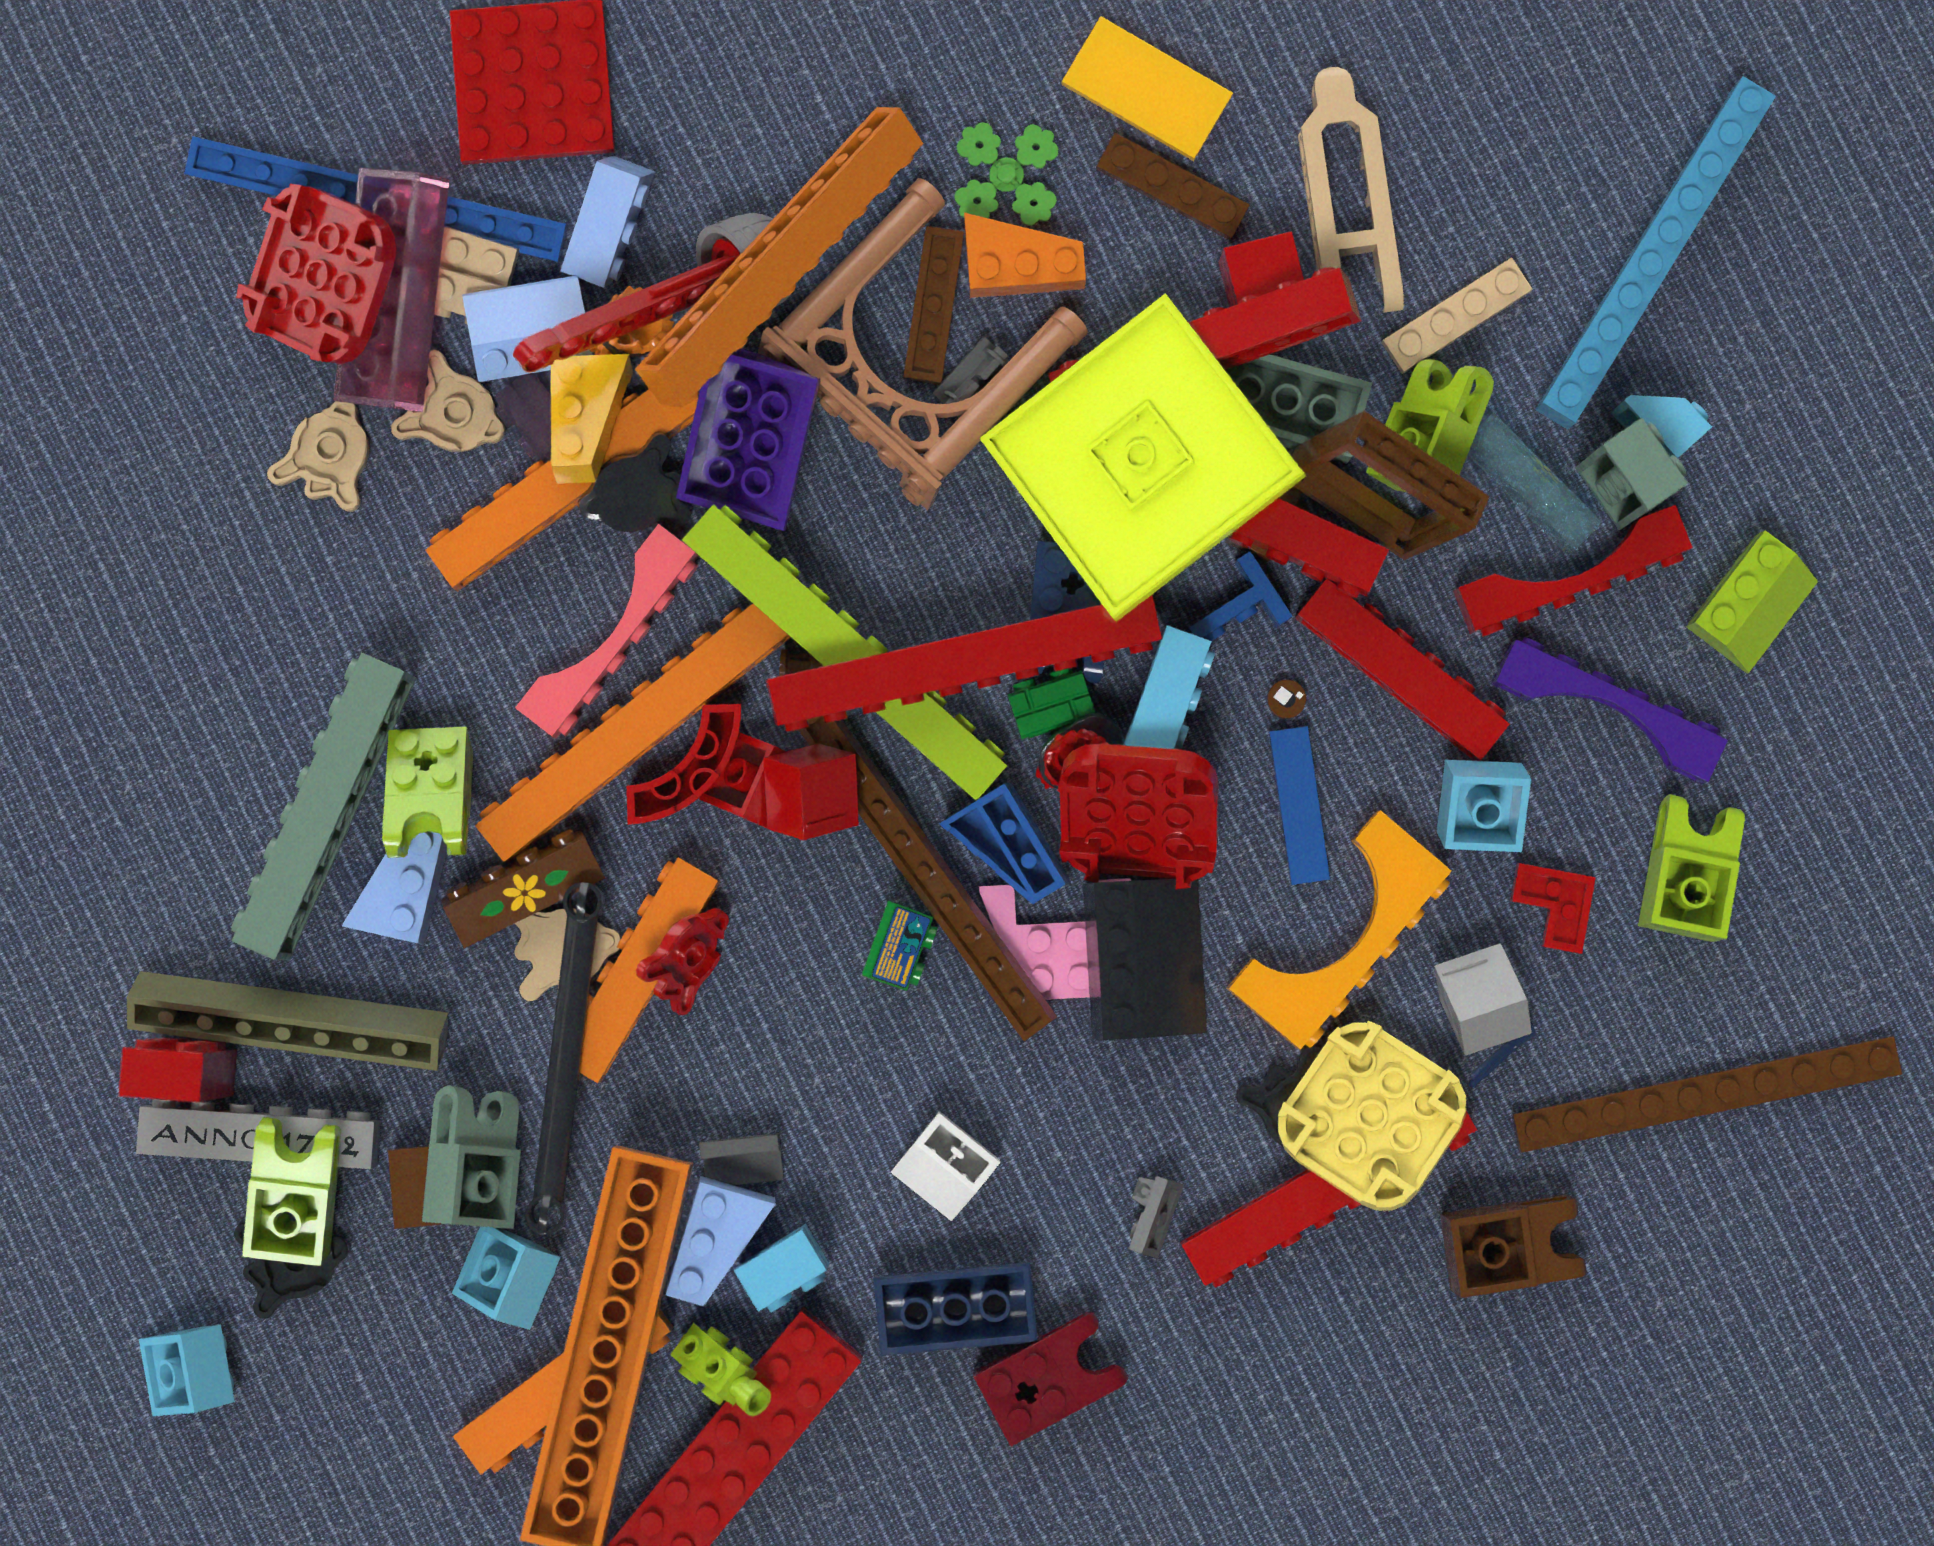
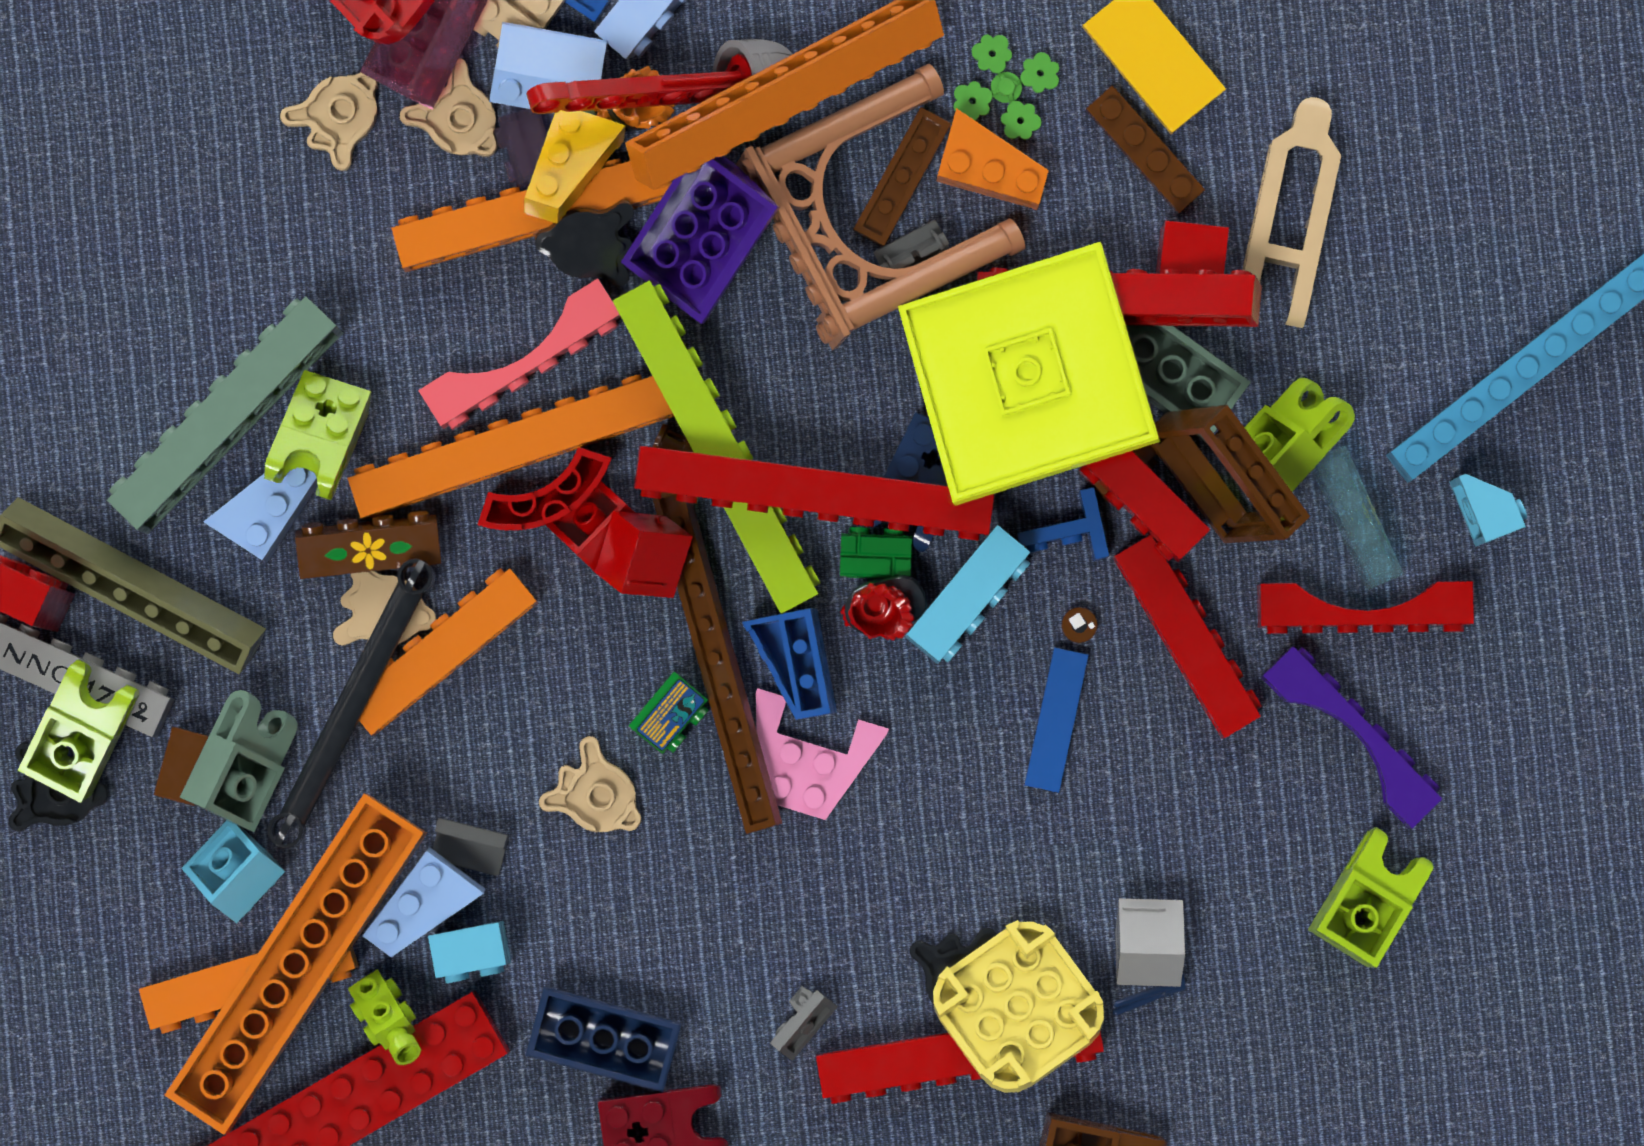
camera: 20 degrees right, 0 degrees up
(685, 958) = (484, 657): red tile -> none
(852, 1058) = (595, 794): none -> tan tile
(945, 1166) = (640, 915): white slope -> none
(1139, 812) = (914, 675): red tile -> none
(1144, 959) = (875, 801): black slope -> none
(1402, 882) = (1120, 817): light orange arch -> none
(1457, 315) = (1348, 350): tan plate -> none
(1483, 805) = (1212, 778): medium azure brick -> none
(1566, 898) = (1254, 882): red plate -> none
(1632, 473) = (1442, 541): sand green brick -> none
(1706, 1094) = (1313, 1095): reddish brown plate -> none
(1753, 601) = (1510, 689): lime slope -> none

